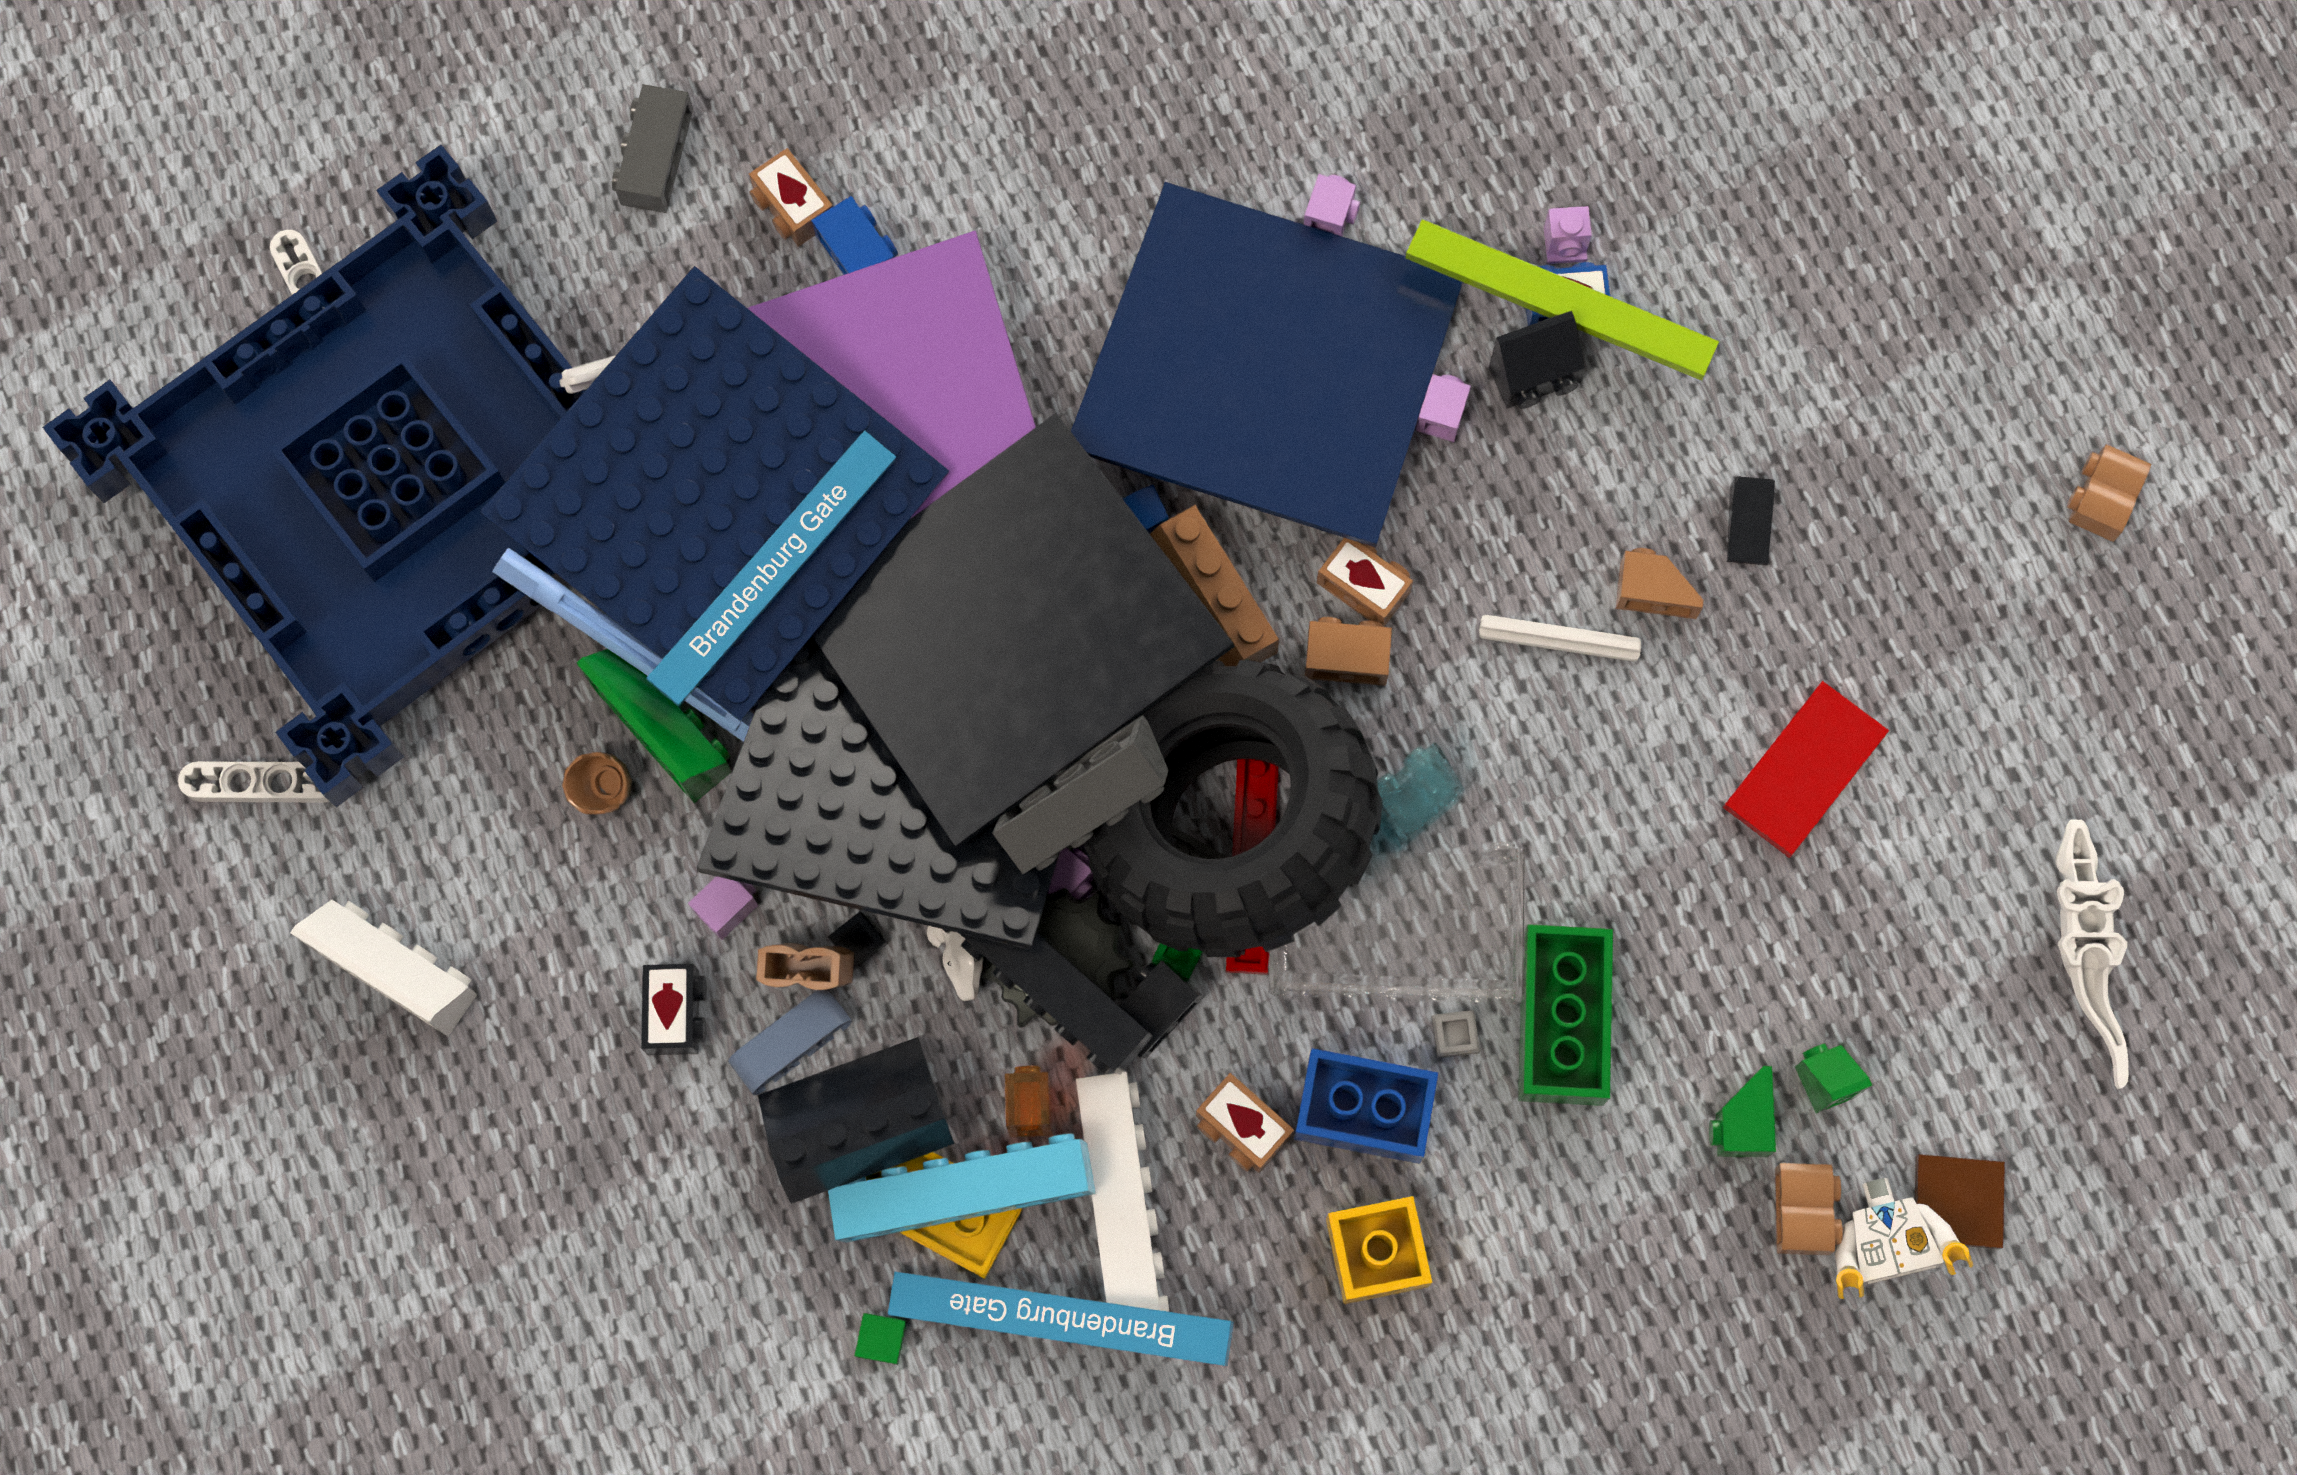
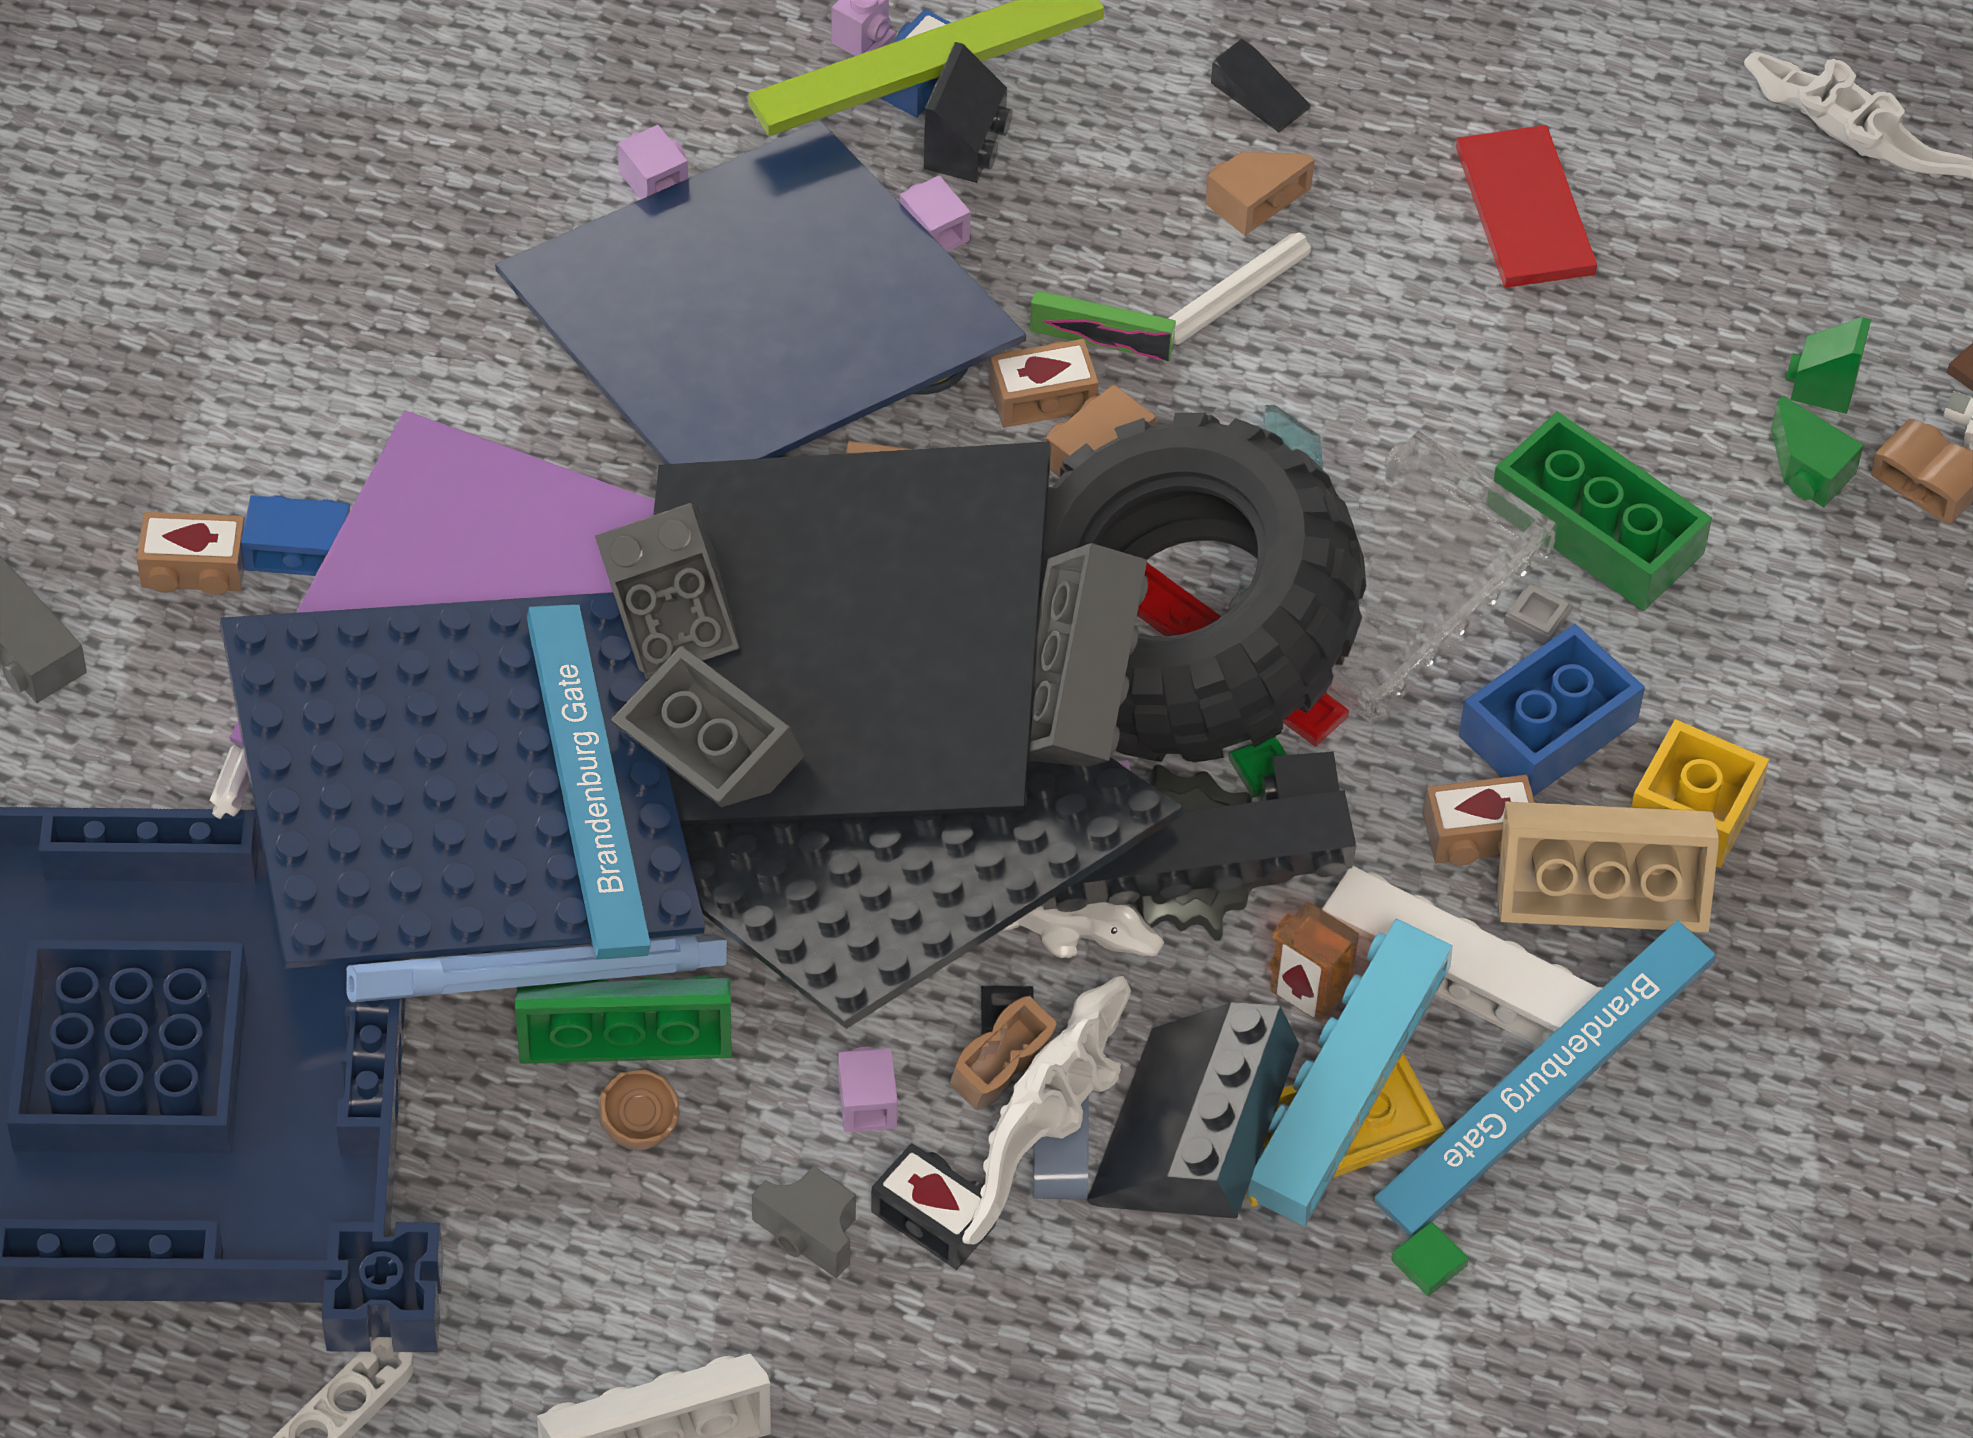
camera: 55 degrees left, 20 degrees down
(603, 944) = (809, 1218): none -> dark grey brick
(788, 1022) = (1051, 1094): none -> white animal
(862, 611) = (709, 731): none -> dark grey slope
(959, 497) = (668, 587): none -> dark grey slope
(1258, 1236) = (1607, 866): none -> tan brick
(1446, 580) = (1102, 325): none -> bright green tile

